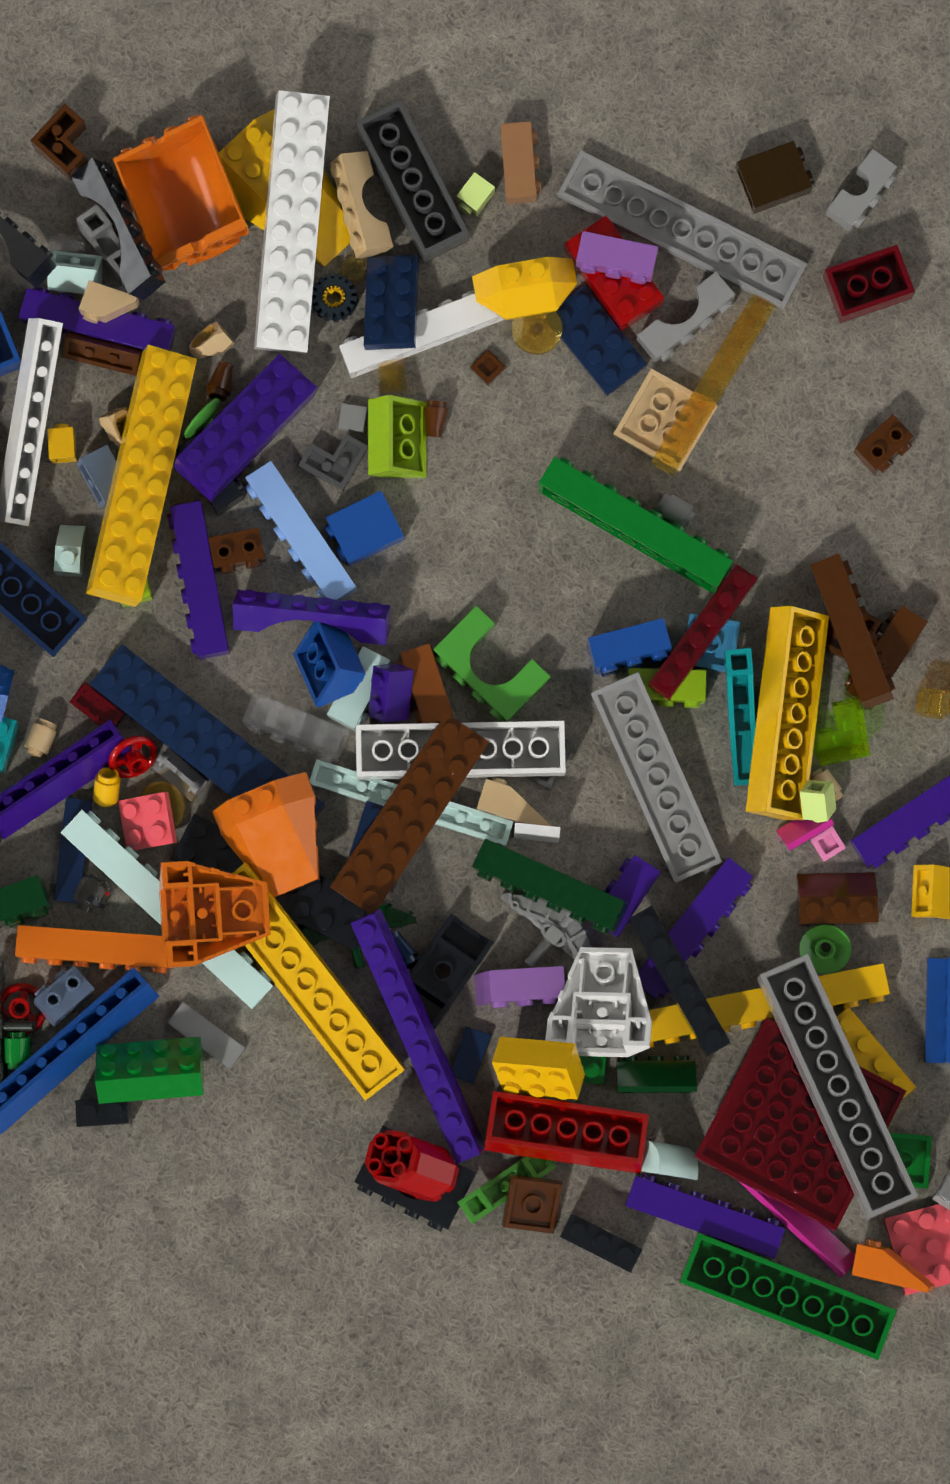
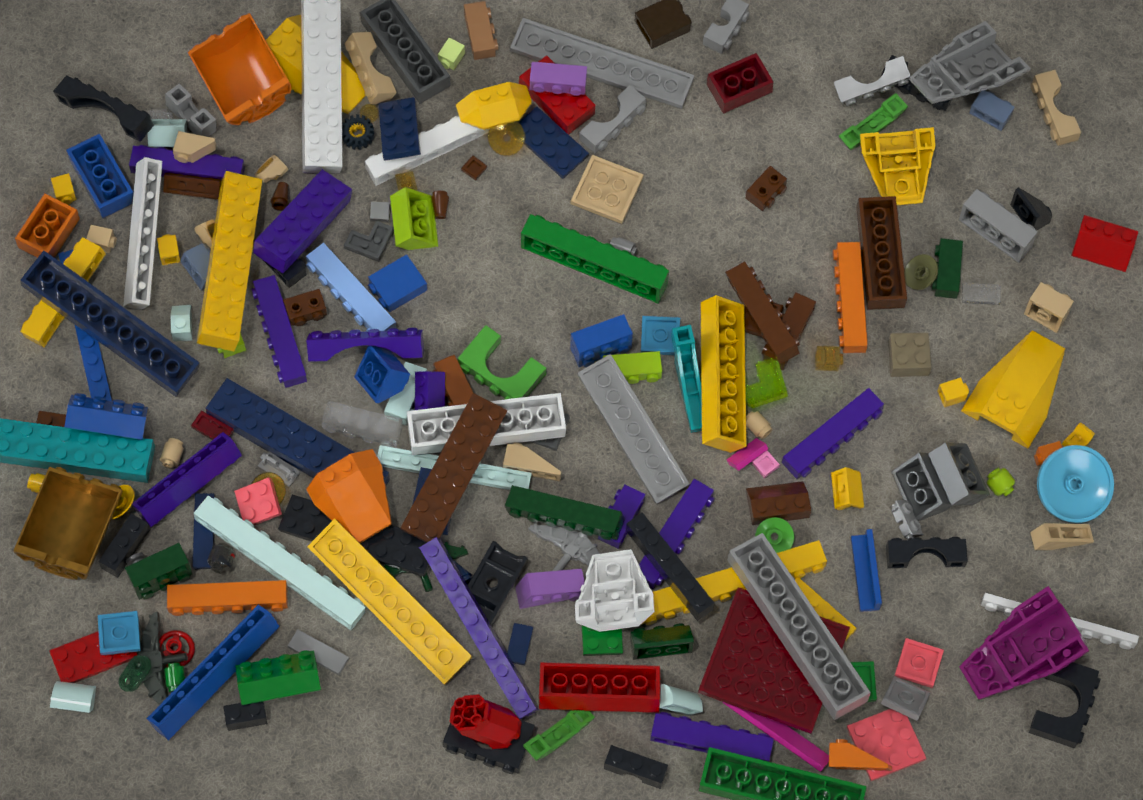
camera: 15 degrees left, 15 degrees down
(56, 141) = (146, 48): reddish brown brick -> none
(63, 995) = (206, 633): sand blue brick -> none
(106, 787) = (225, 481): yellow brick -> none
(134, 760) = (244, 458): red piece -> none
(138, 268) = (213, 118): arch -> none
(202, 419) = (269, 217): bright green dish -> none
(208, 912) = (311, 553): orange wedge -> none
(532, 1203) = (579, 744): reddish brown plate -> none
(536, 832) = (549, 477): white sticker -> none
(538, 1068) = (572, 639): yellow brick -> none
(703, 632) = (653, 326): dark red plate -> none
(712, 385) = (637, 161): clear yellow plate -> none
(818, 800) = (754, 430): yellowish green brick -> none

